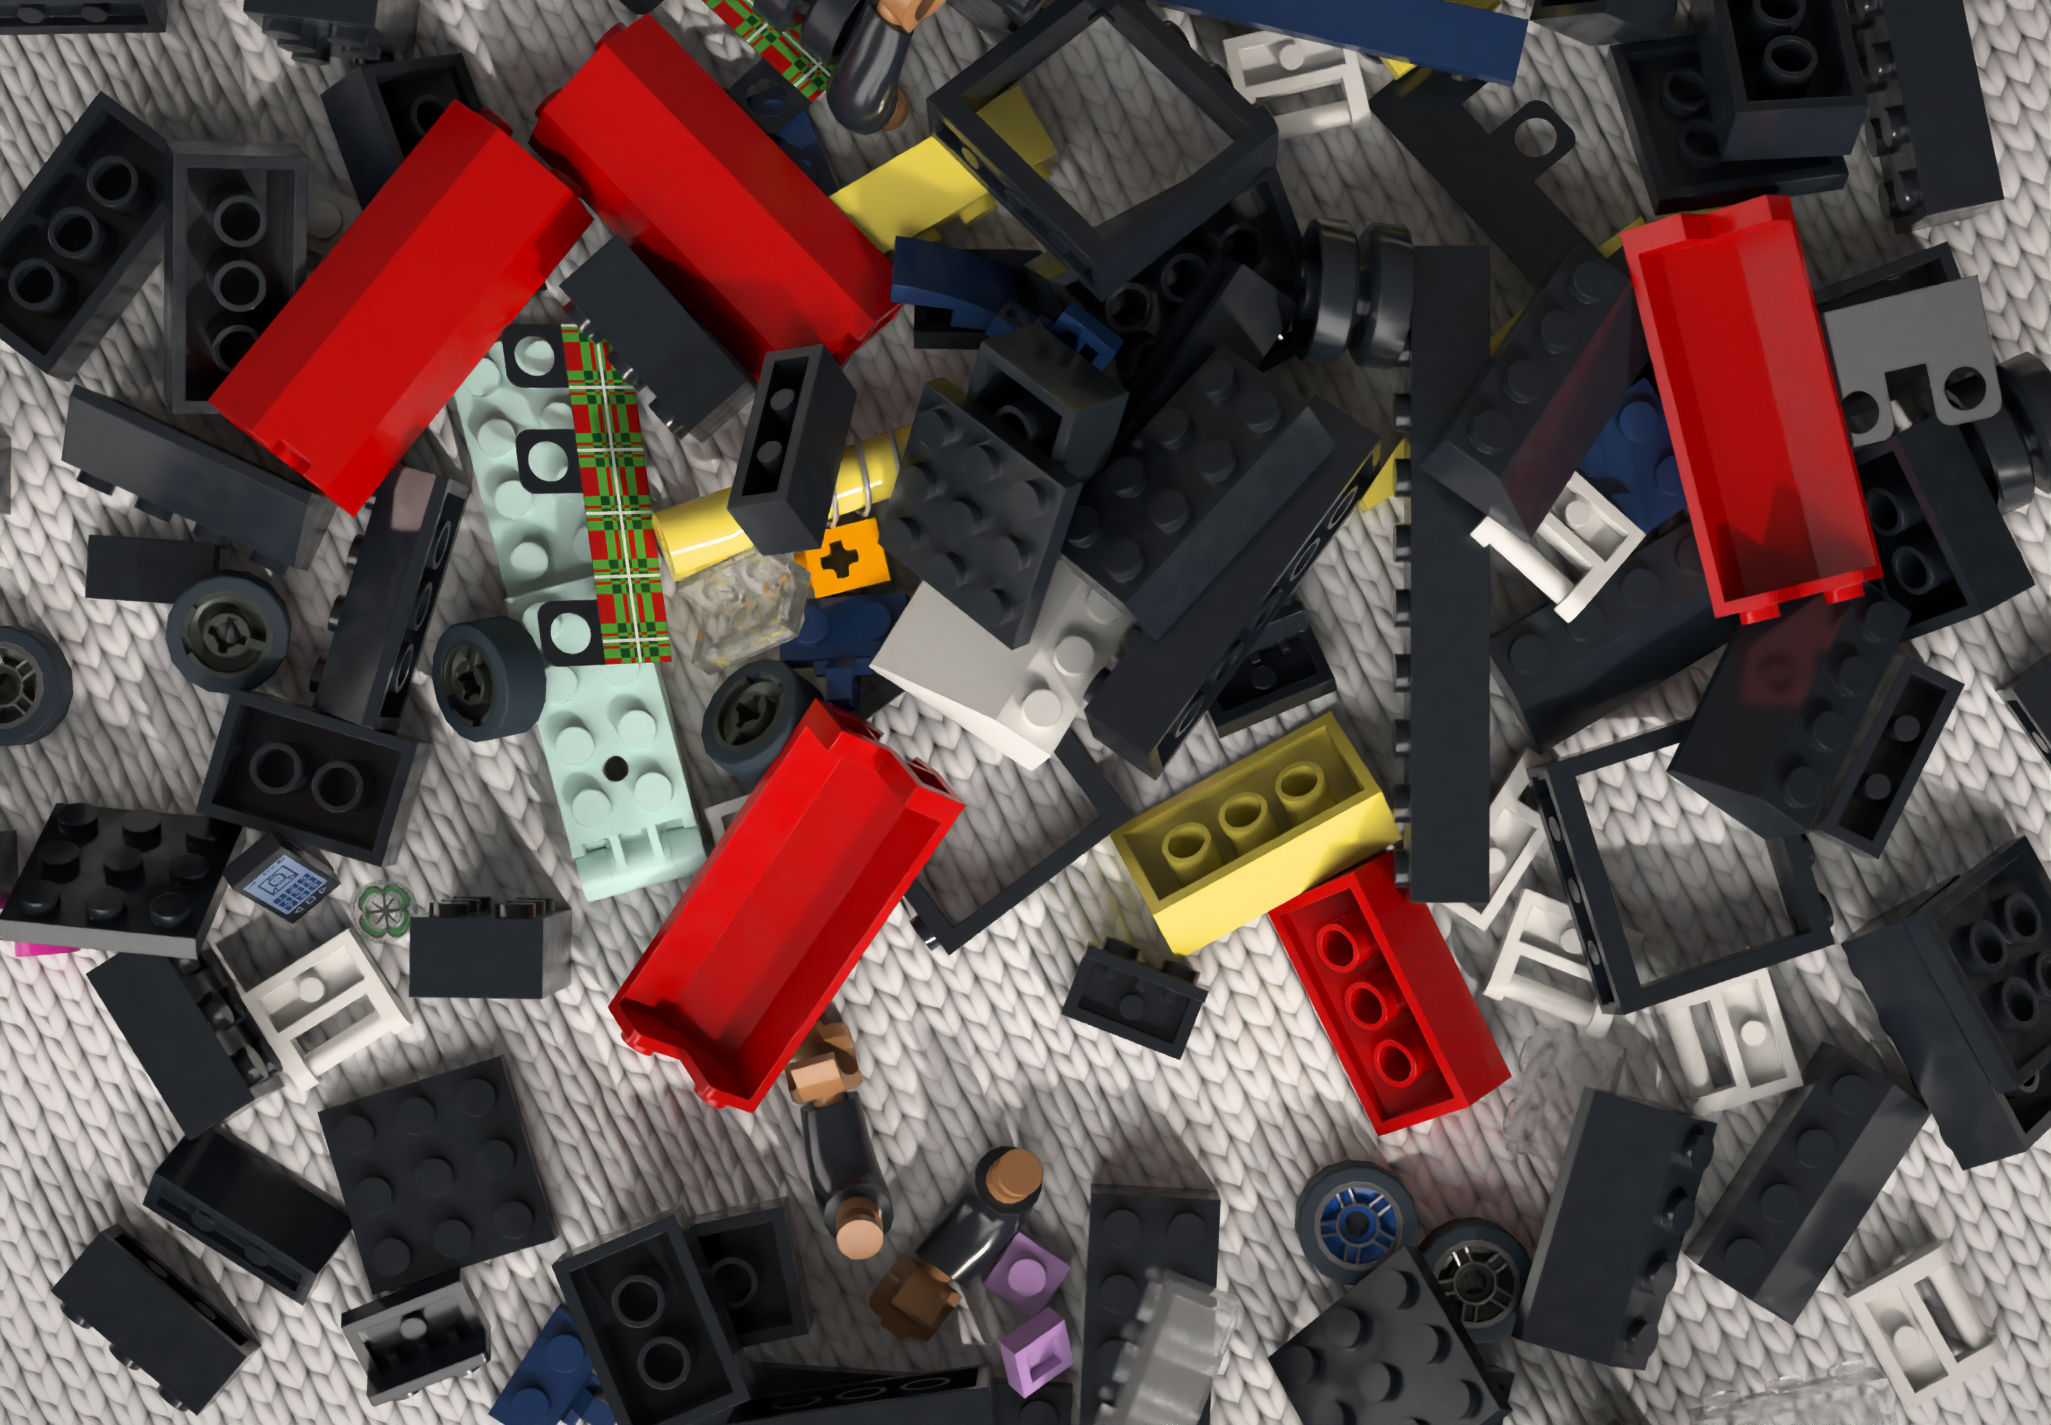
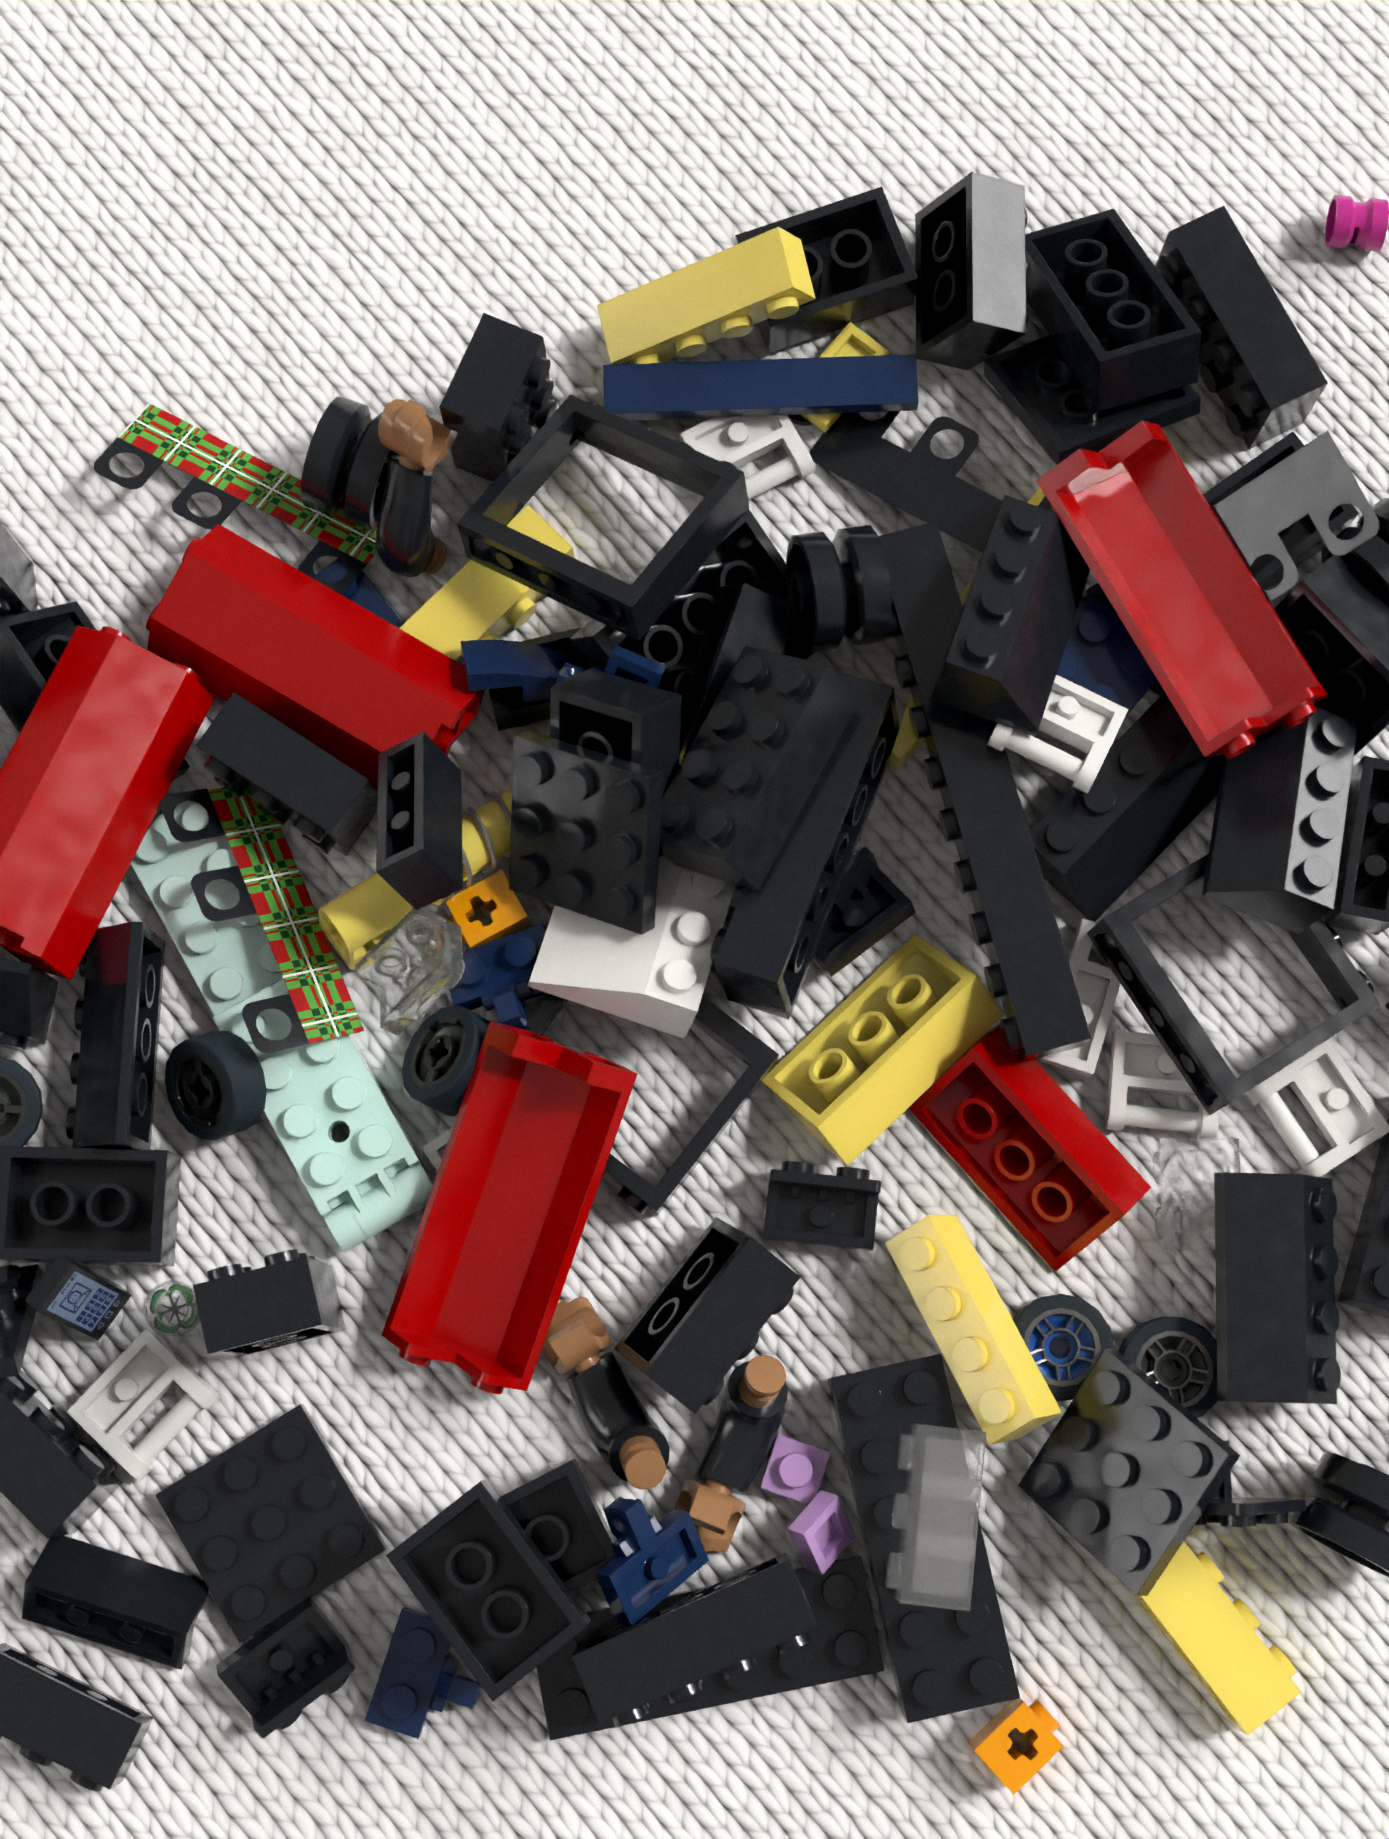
camera: 10 degrees left, 10 degrees down
(838, 1336) = (649, 1560): none -> dark blue hinge
(972, 1087) = (708, 1314): none -> black brick
(1264, 1180) = (972, 1328): none -> light yellow brick

